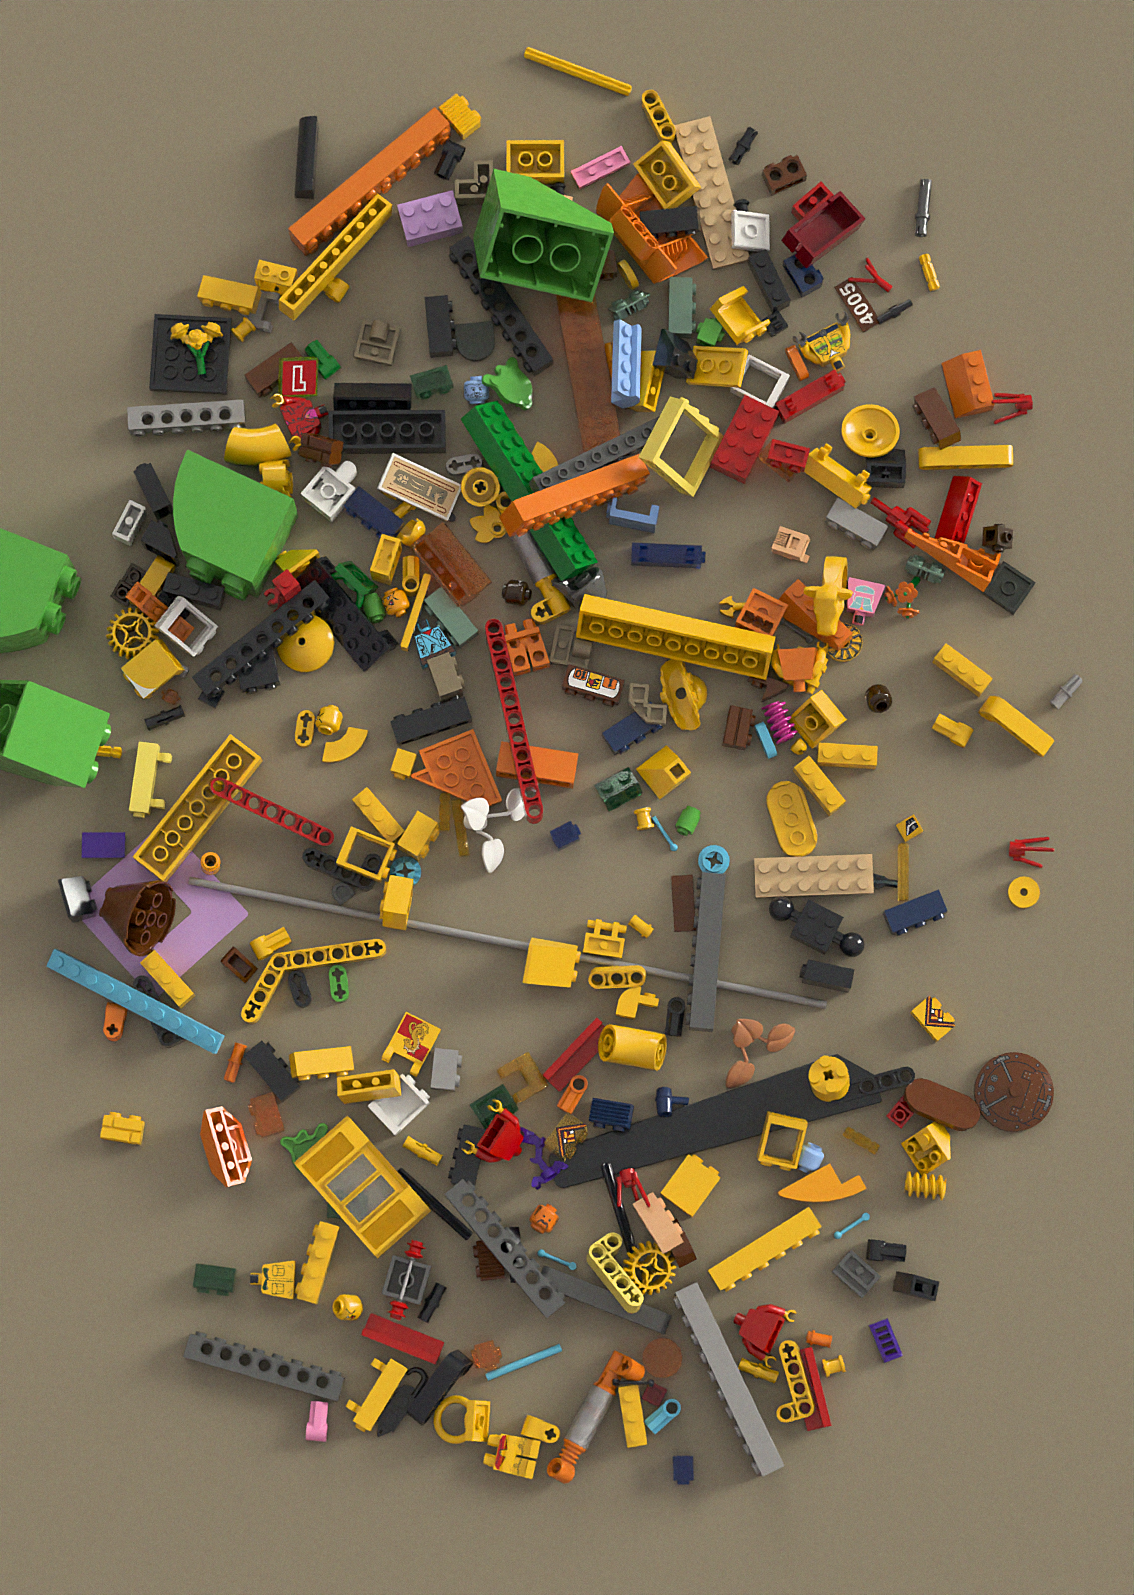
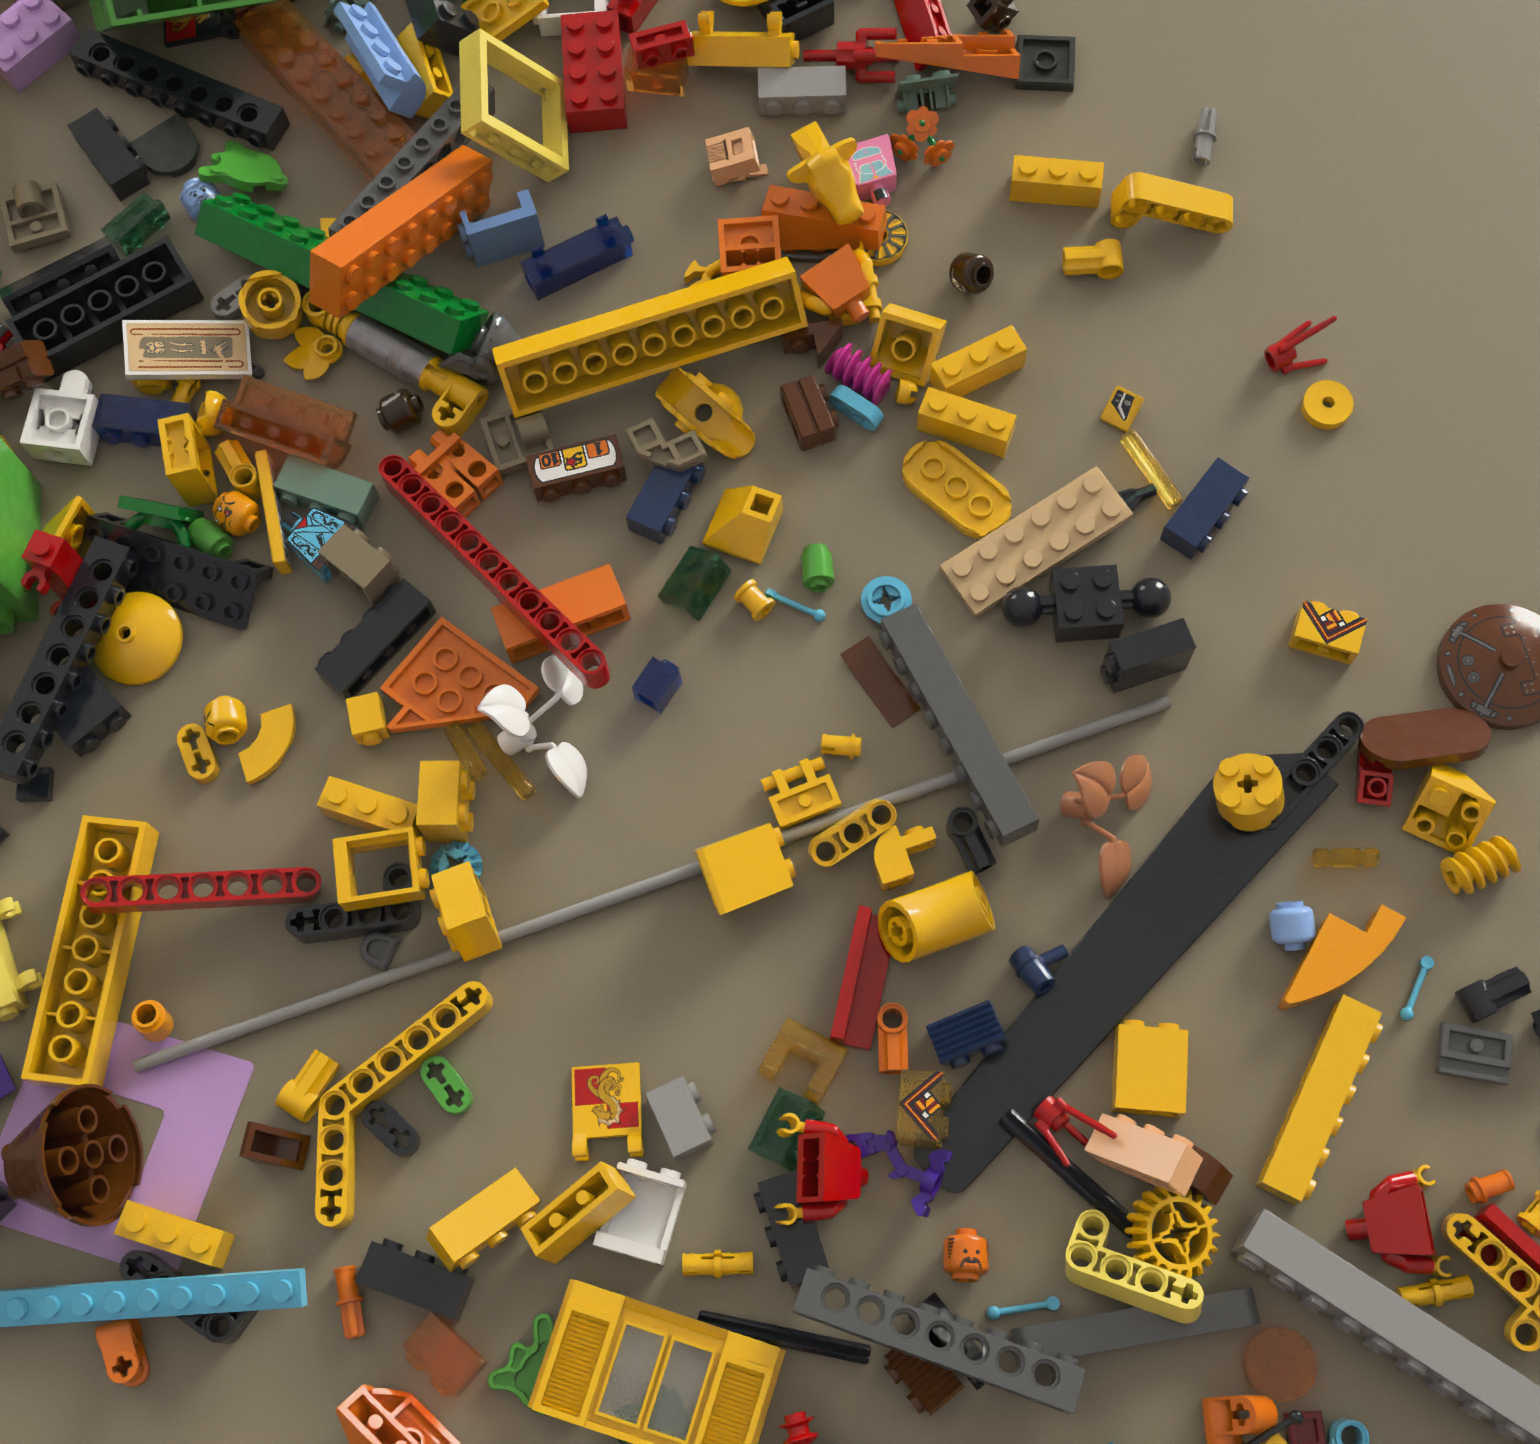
camera: 25 degrees left, 10 degrees down
(788, 1121) = (1265, 914): yellow window -> none

